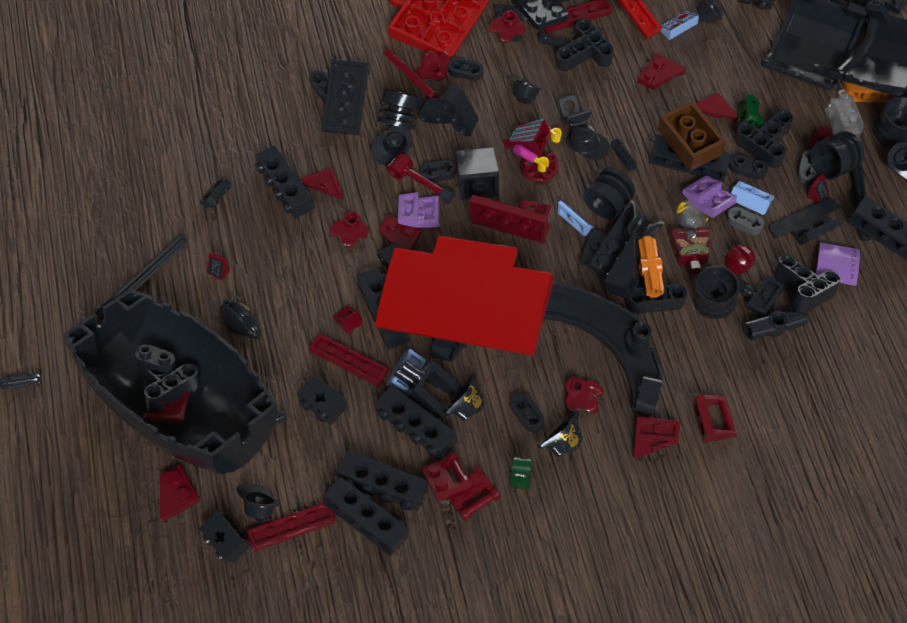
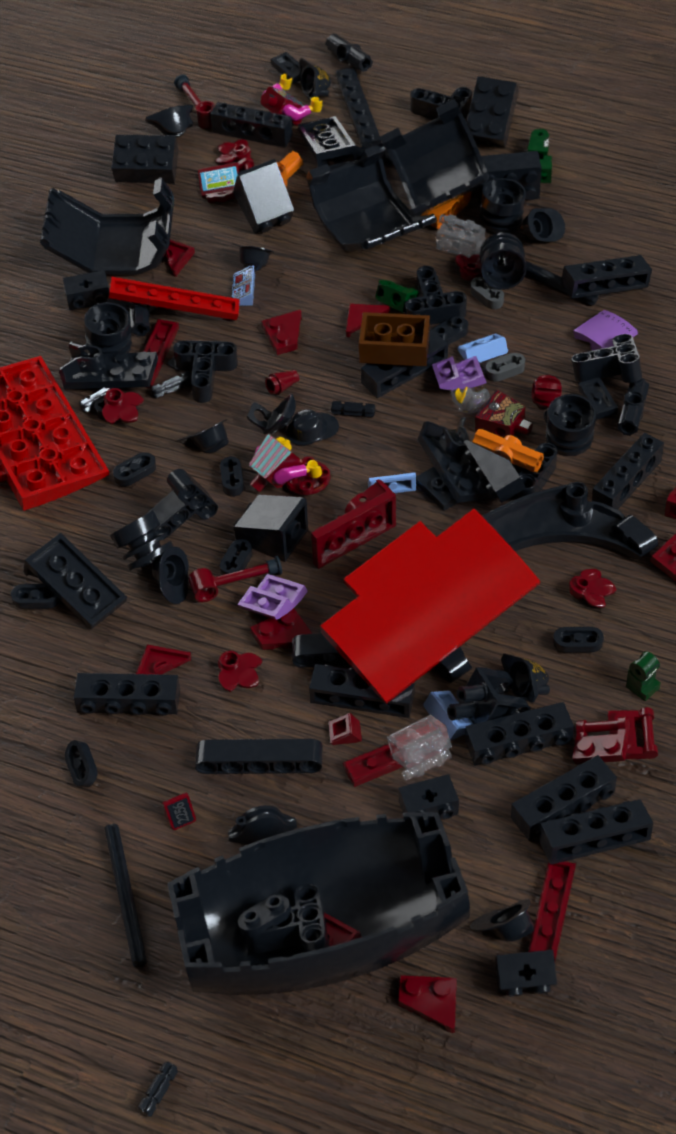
camera: 55 degrees left, 10 degrees down
(289, 283) = (258, 756): none -> black beam
(356, 368) = (420, 746): none -> clear brick
(410, 74) = (100, 514): dark red tile -> none
(432, 64) = (101, 491): dark red plate -> none
(504, 124) = (227, 476): none -> black beam
(565, 437) = (627, 622): black hat -> none
(609, 193) = (395, 438): black wheel -> none
(610, 98) = (279, 382): none -> dark red cone
(704, 357) = (629, 472): none -> black brick
(809, 222) = (548, 326): black plate -> none
(818, 189) = (517, 300): slope -> none

